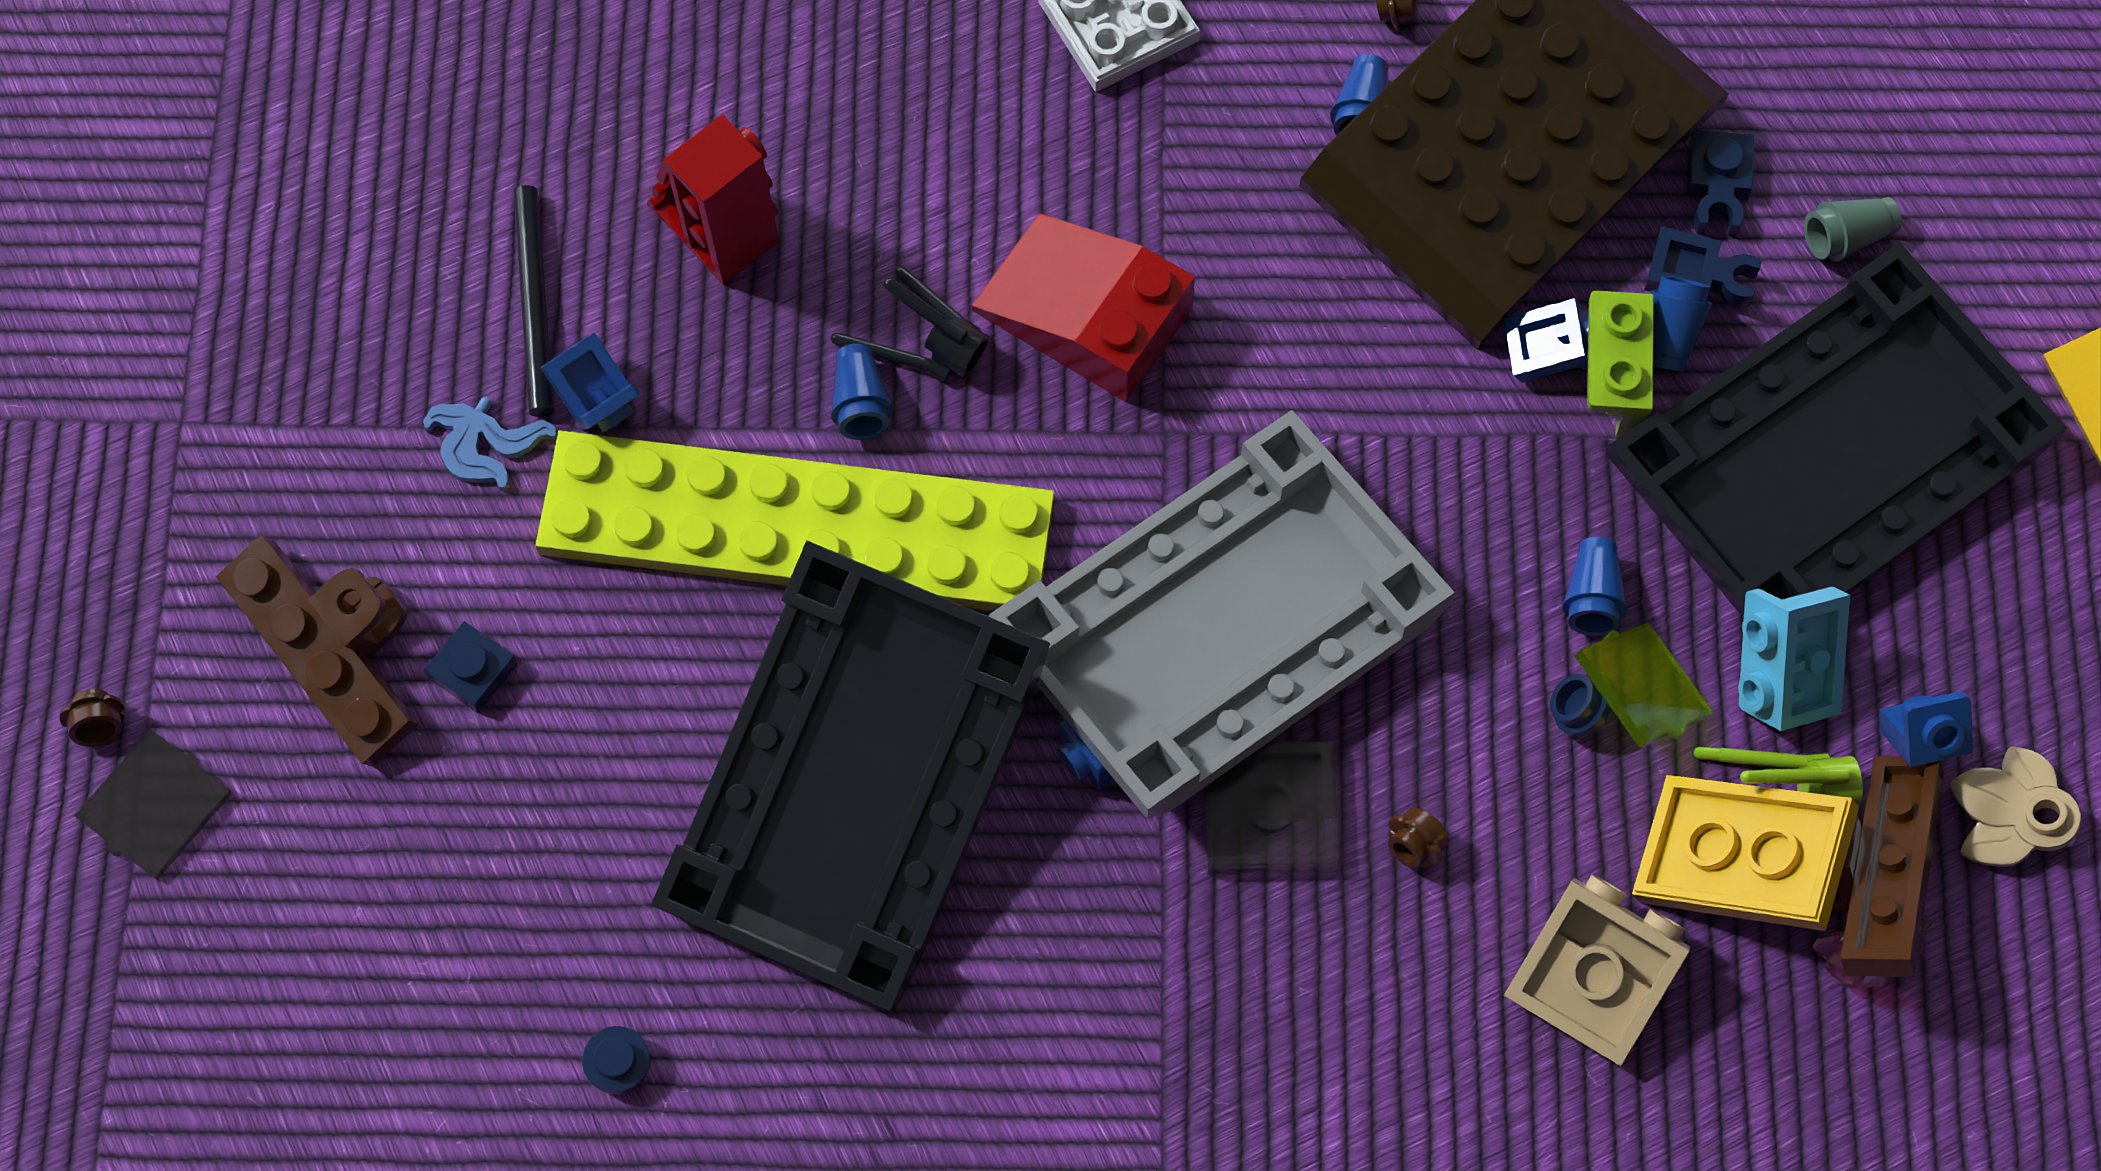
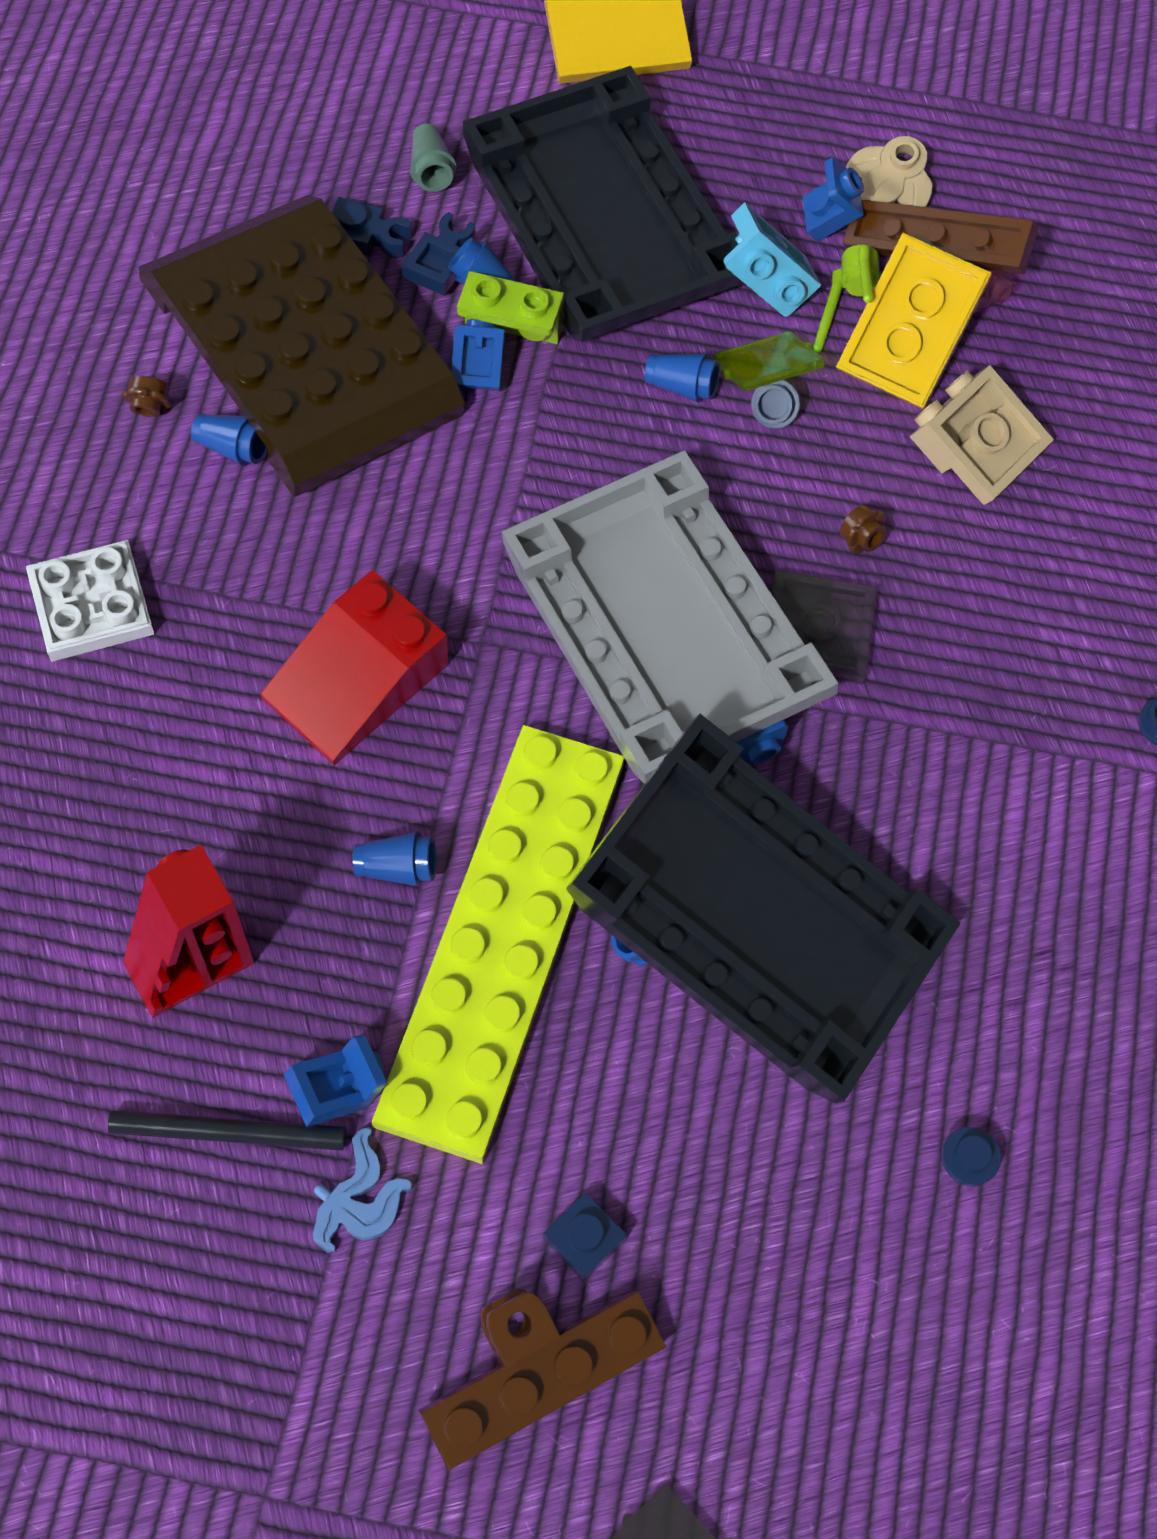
camera: 85 degrees left, 5 degrees down
(953, 340) = (366, 778): black plant -> none

